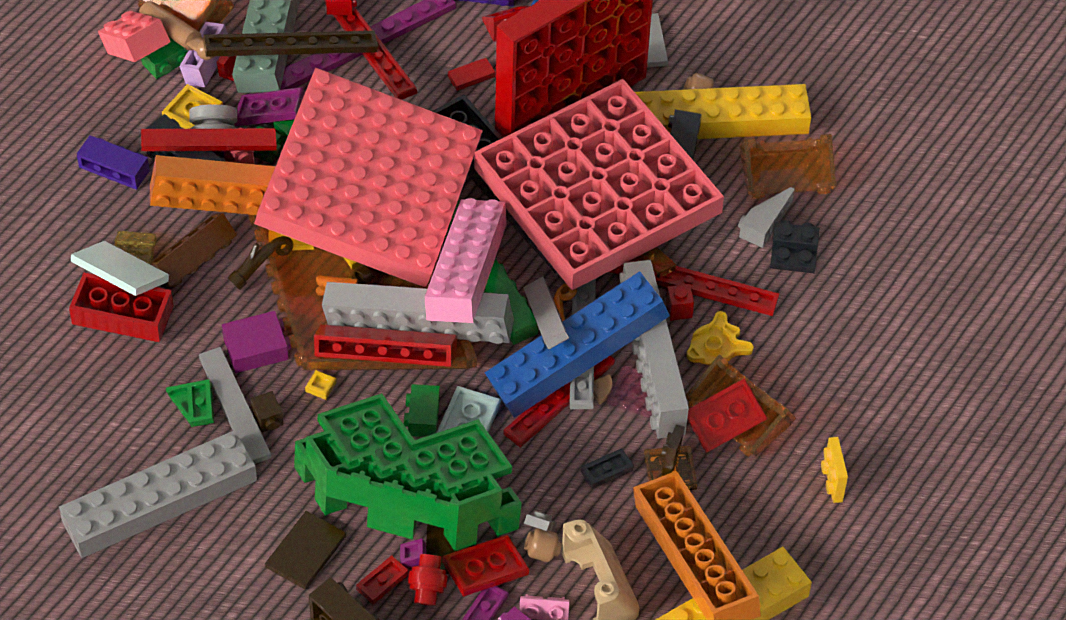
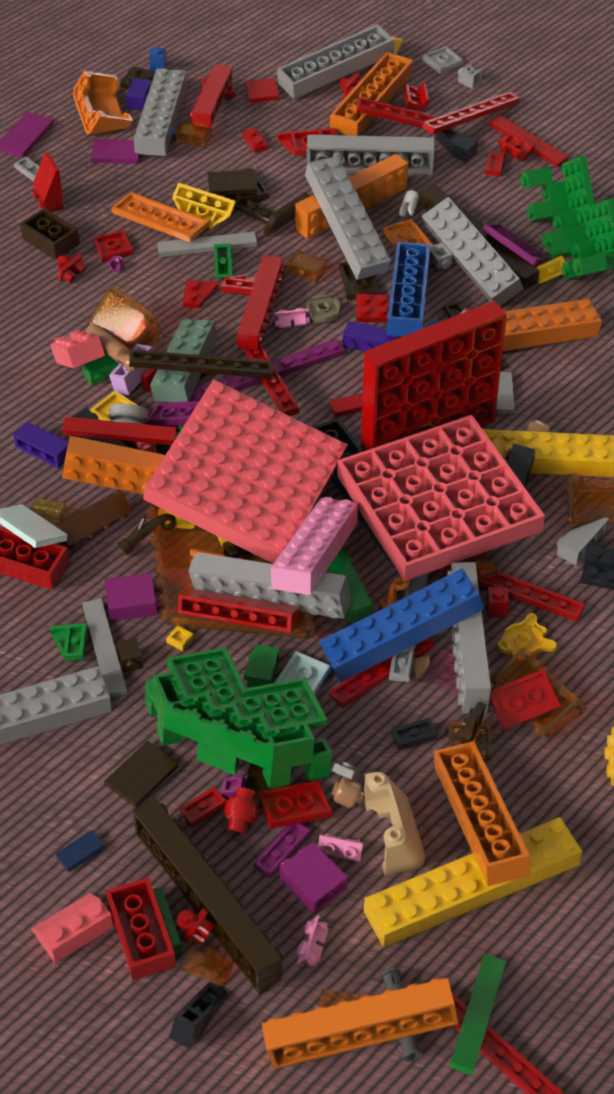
camera: 10 degrees right, 5 degrees down
(546, 313) = (378, 597): light grey tile -> none

